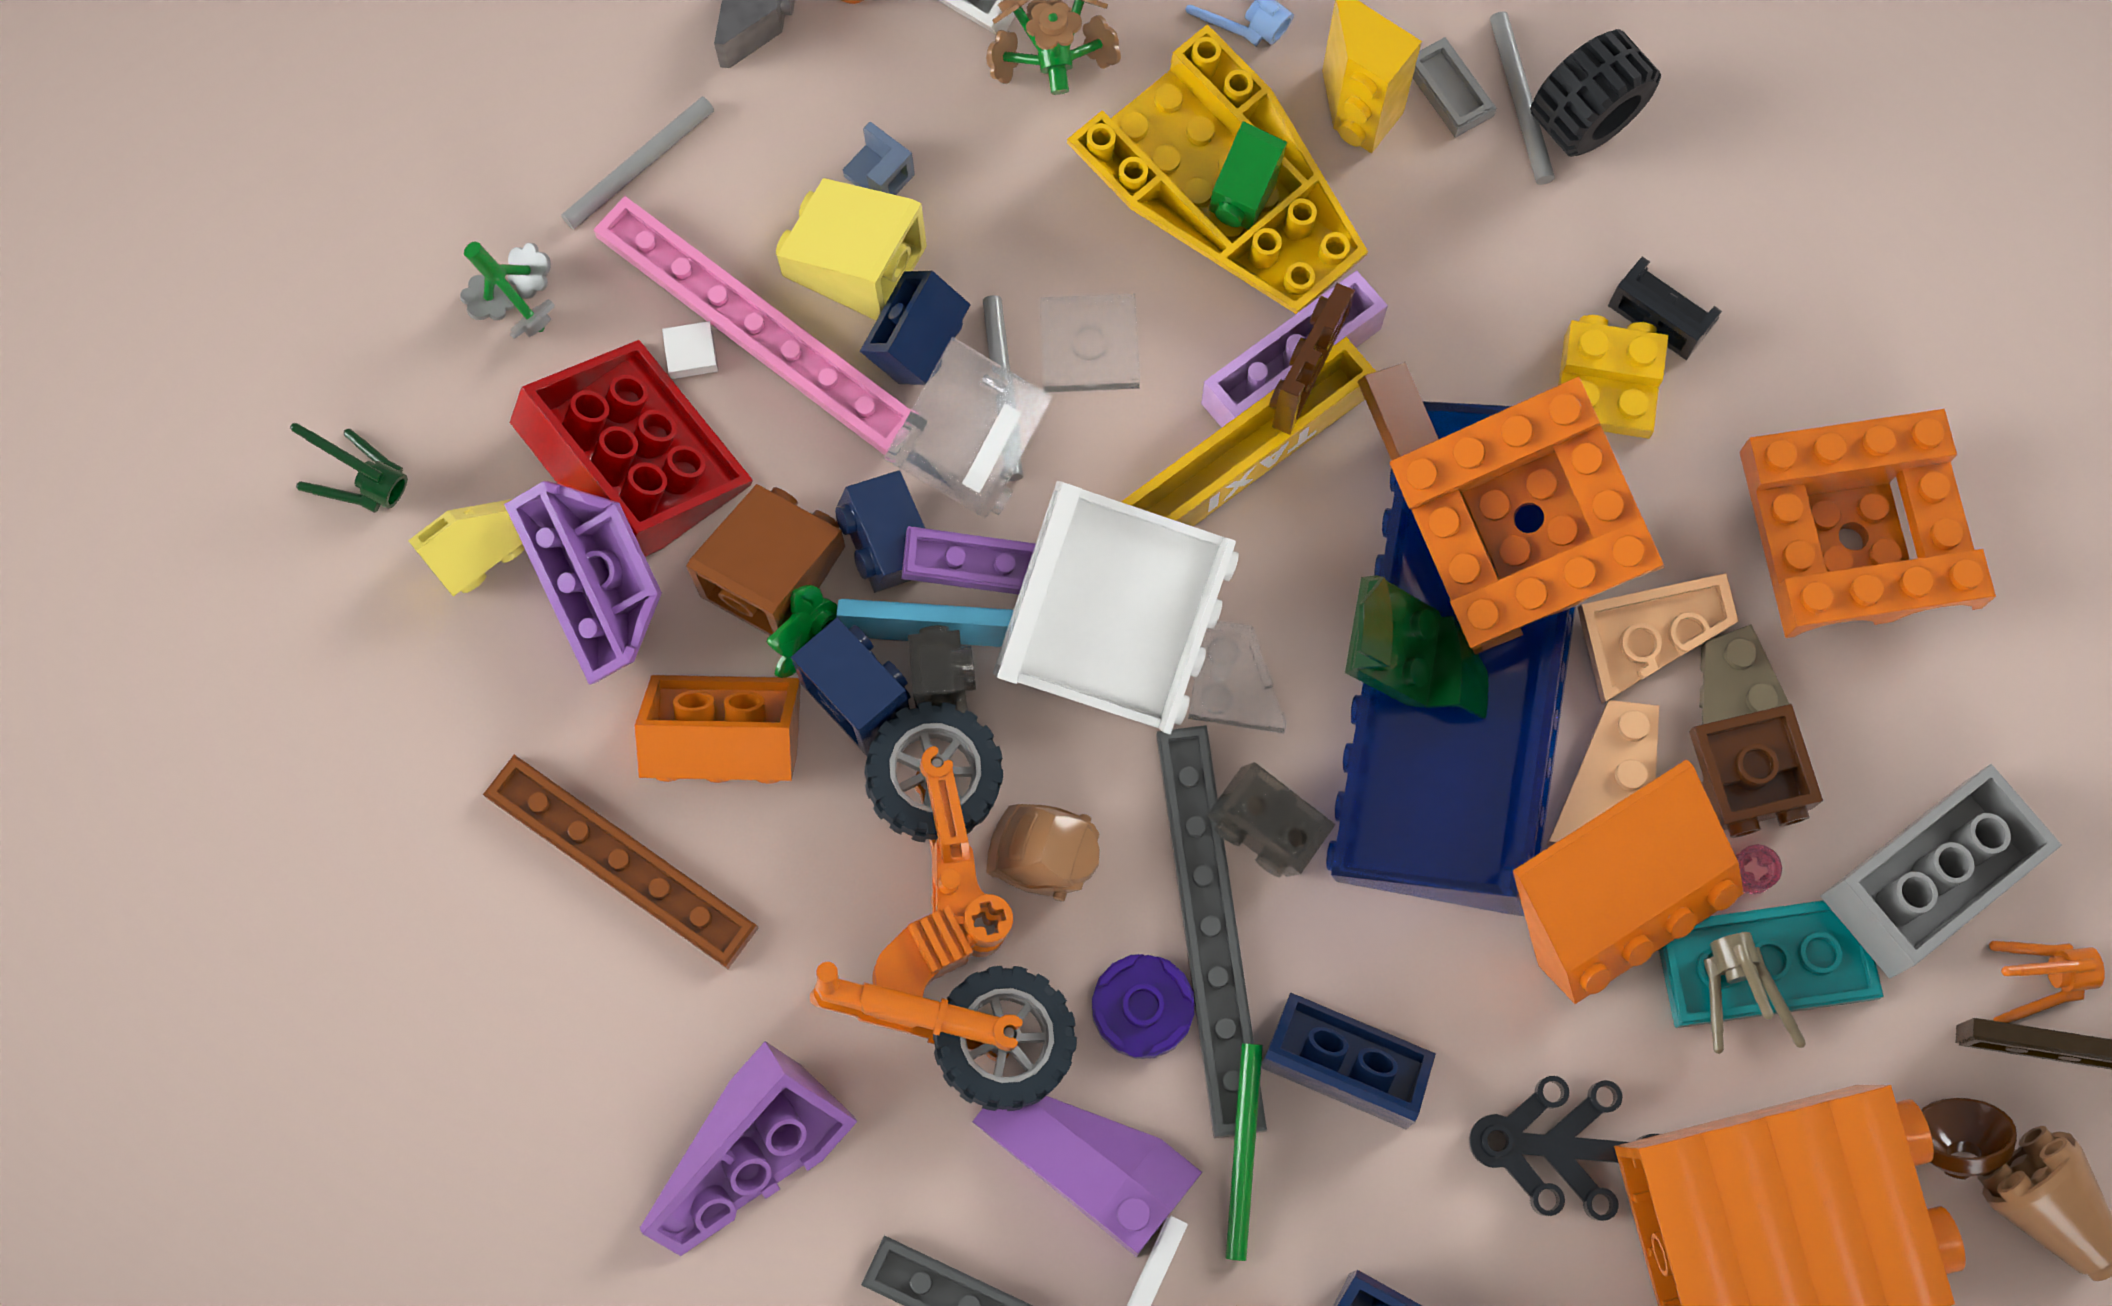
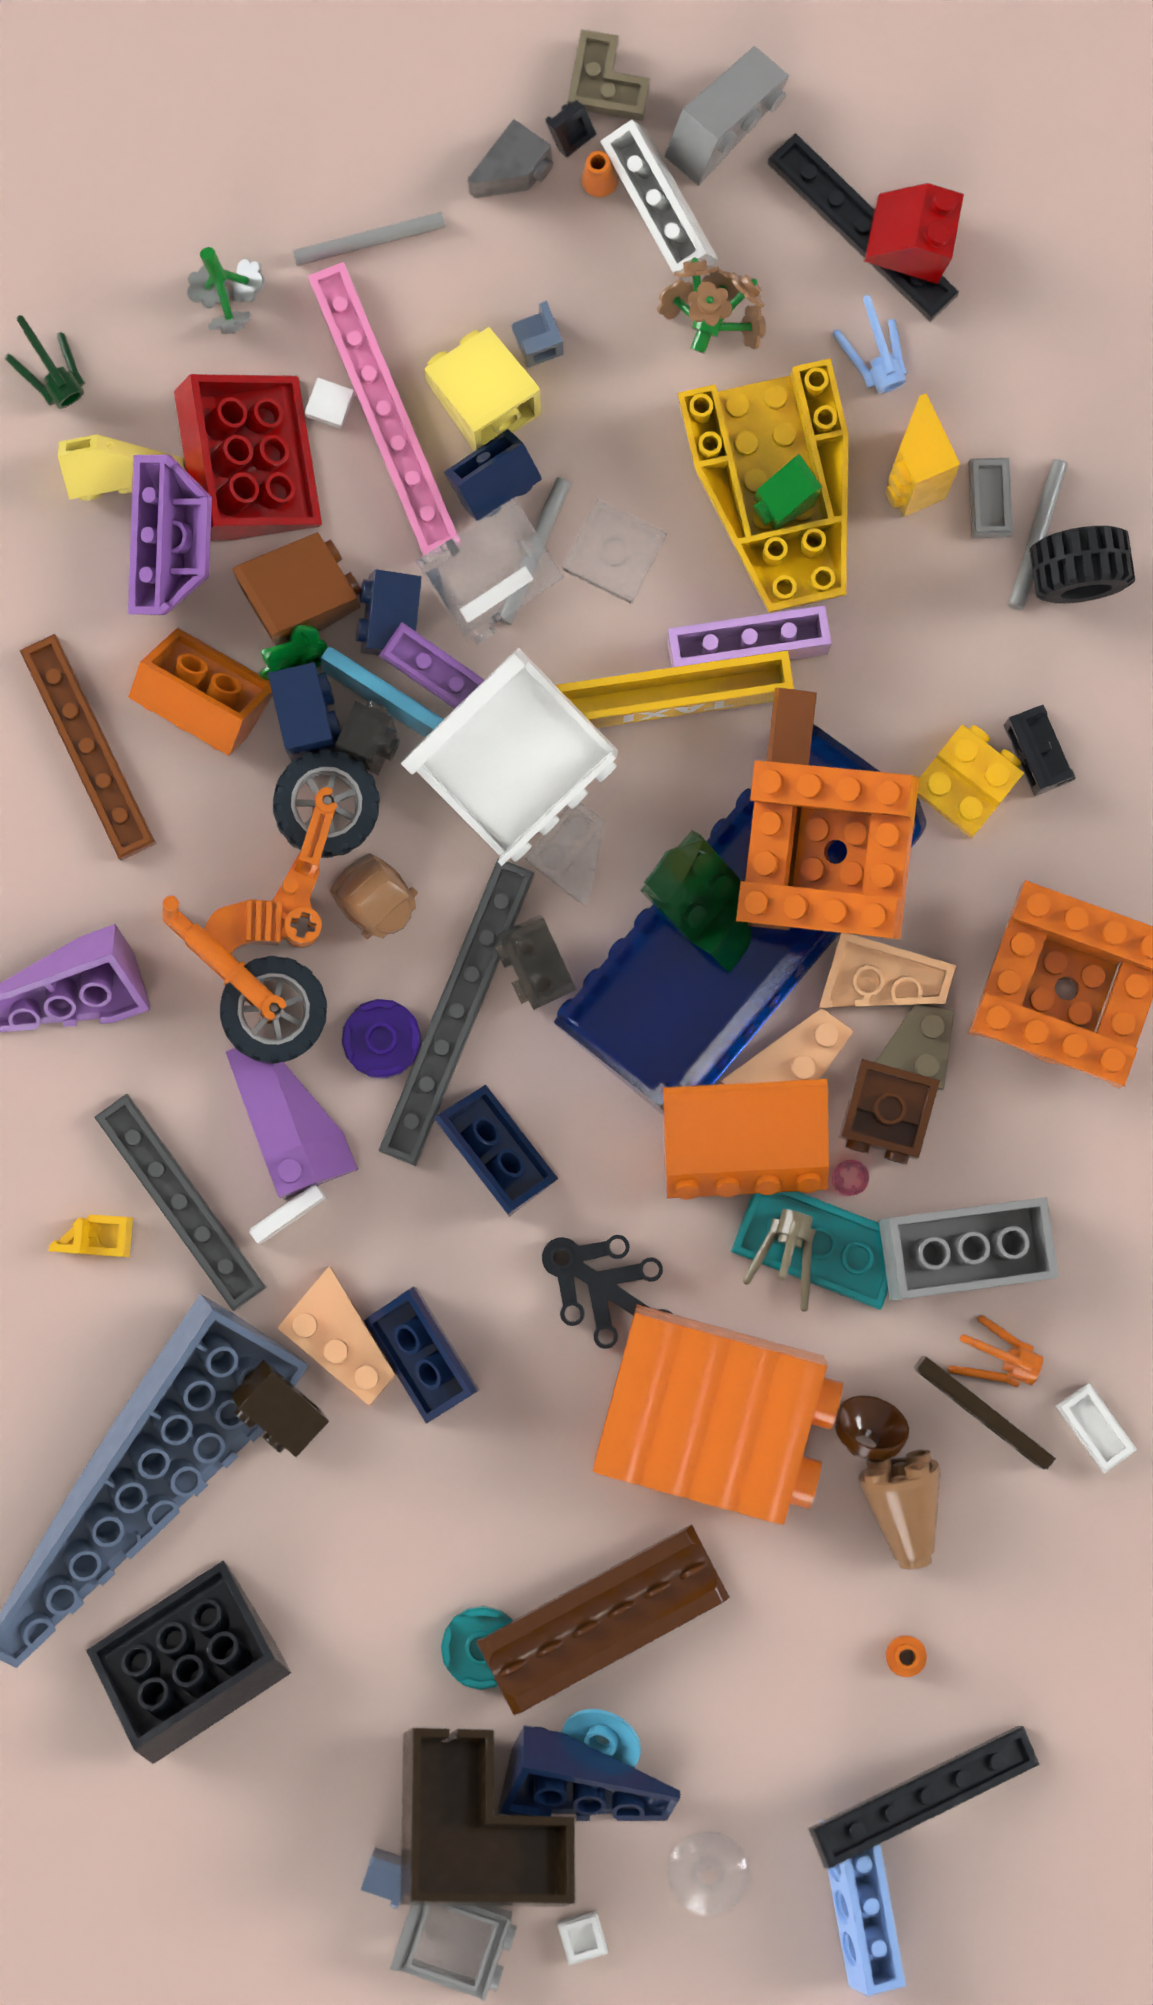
camera: 30 degrees right, 10 degrees up
(1244, 1152) = (390, 1170): green bar -> none
(1310, 357) = (748, 654): reddish brown wing -> none

